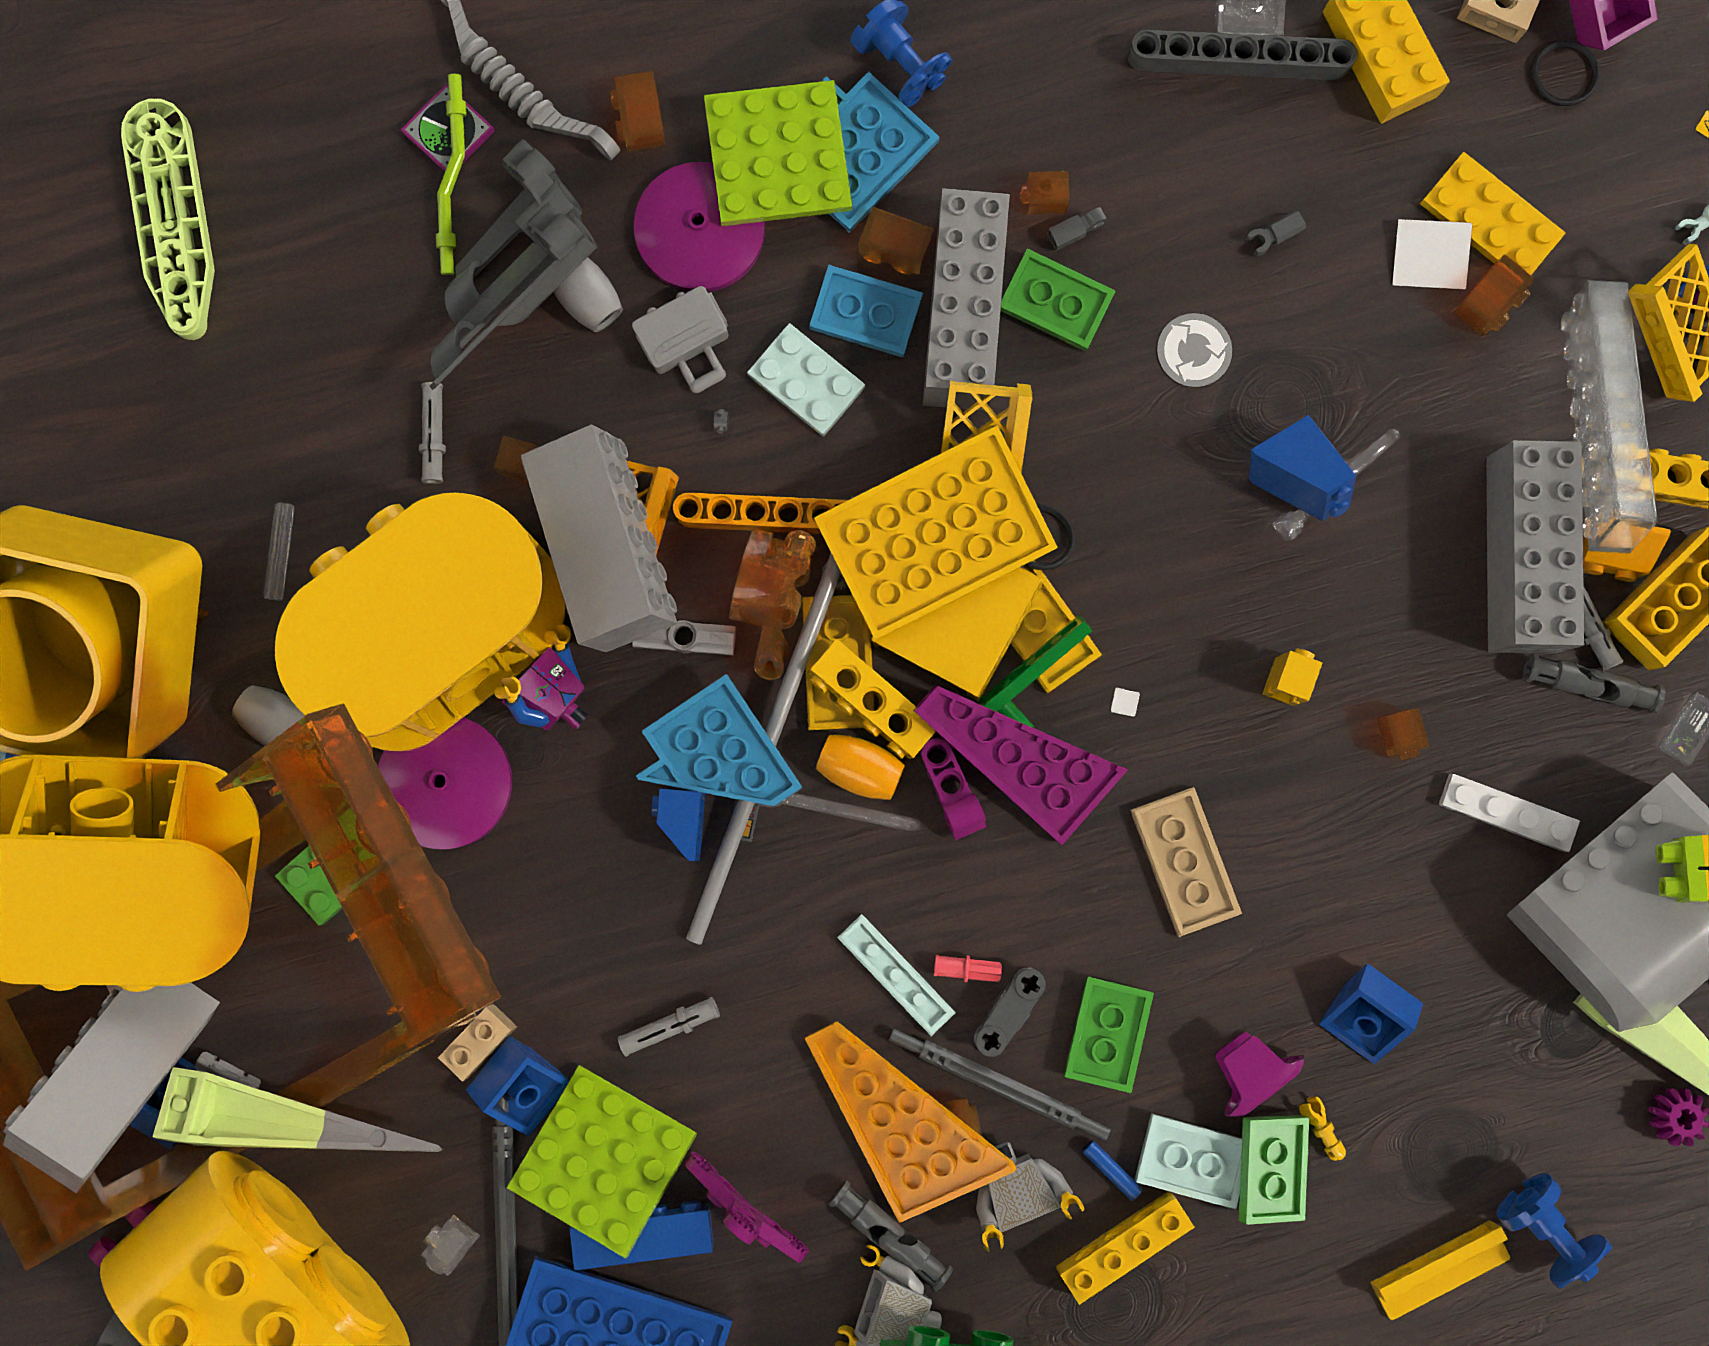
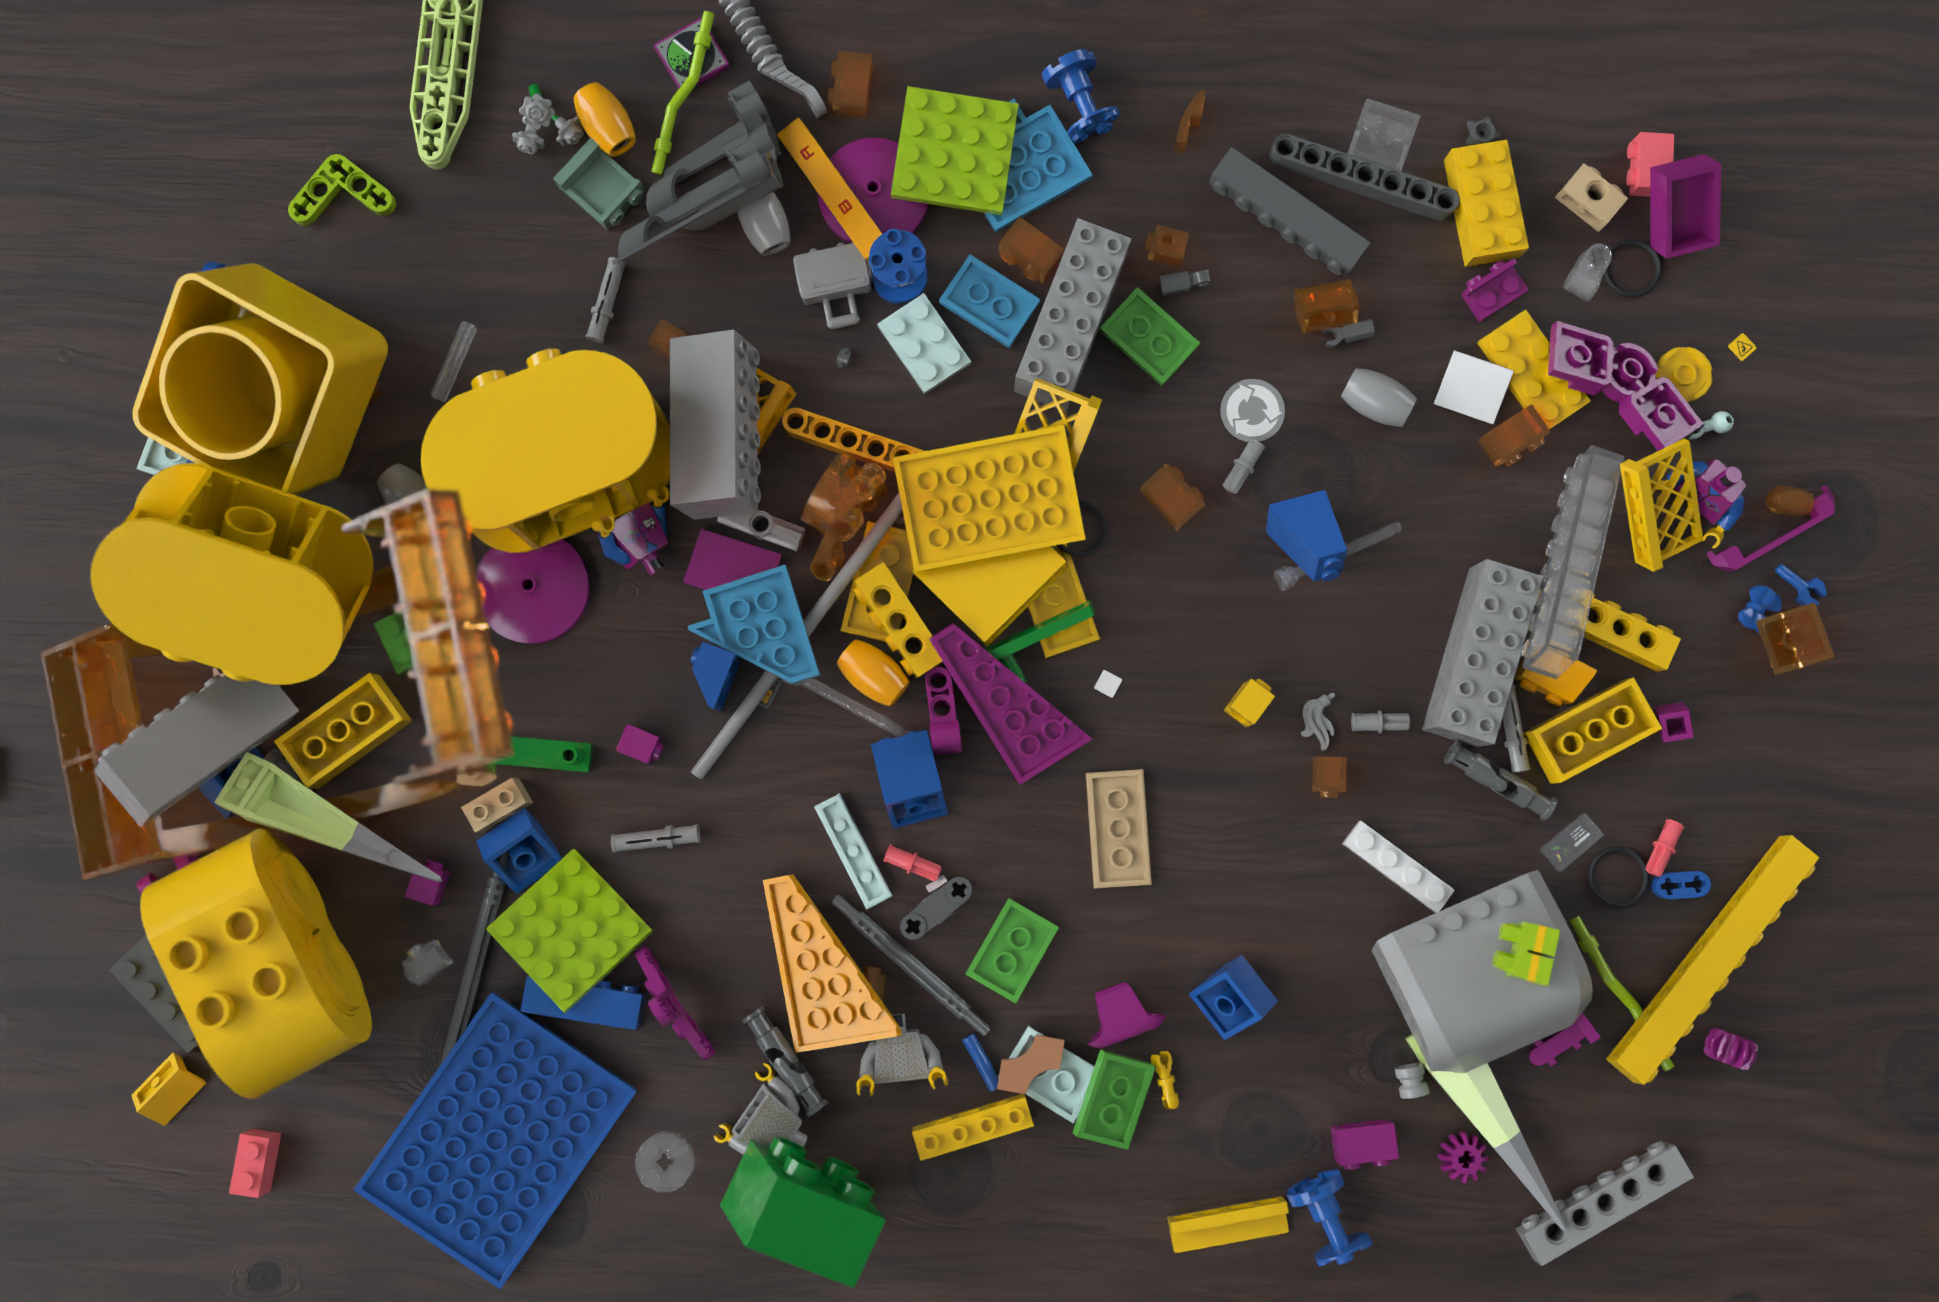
camera: 20 degrees right, 0 degrees up
(83, 386) = (335, 182): none -> lime beam
(276, 1010) = (343, 731): none -> yellow brick
(292, 241) = (538, 112): none -> light grey plant
(371, 228) = (604, 119): none -> light orange piece
(386, 305) = (599, 185): none -> sand green panel
(425, 1164) = (427, 890): none -> magenta brick
(529, 964) = (549, 754): none -> green piece
(620, 925) = (640, 744): none -> magenta brick
(654, 235) = (830, 186): none -> light orange tile
(654, 688) = (724, 560): none -> magenta tile
(754, 300) = (898, 266): none -> blue piece
(936, 874) = (909, 778): none -> blue slope
(999, 986) = (934, 885): none -> white sticker
(1031, 43) = (1191, 117): none -> clear orange slope
(1136, 471) = (1173, 496): none -> clear orange brick
(1159, 1169) = (1041, 1056): none -> nougat tile
(1170, 118) = (1288, 212): none -> dark grey brick
(1204, 414) = (1243, 466): none -> light grey axle
(1243, 209) = (1326, 306): none -> clear orange brick
(1332, 295) = (1378, 397): none -> light grey piece
(1369, 677) = (1315, 720): none -> light grey piece
(1423, 141) = (1495, 290): none -> magenta bracket
(1440, 656) = (1380, 721): none -> light grey axle
(1520, 90) = (1587, 275): none -> clear piece
(1566, 1134) = (1364, 1143): none -> magenta brick
(1596, 1046) = (1411, 1077): none -> light grey wheel
(1600, 196) = (1624, 376): none -> magenta plate
(1657, 175) = (1687, 370): none -> yellow tile

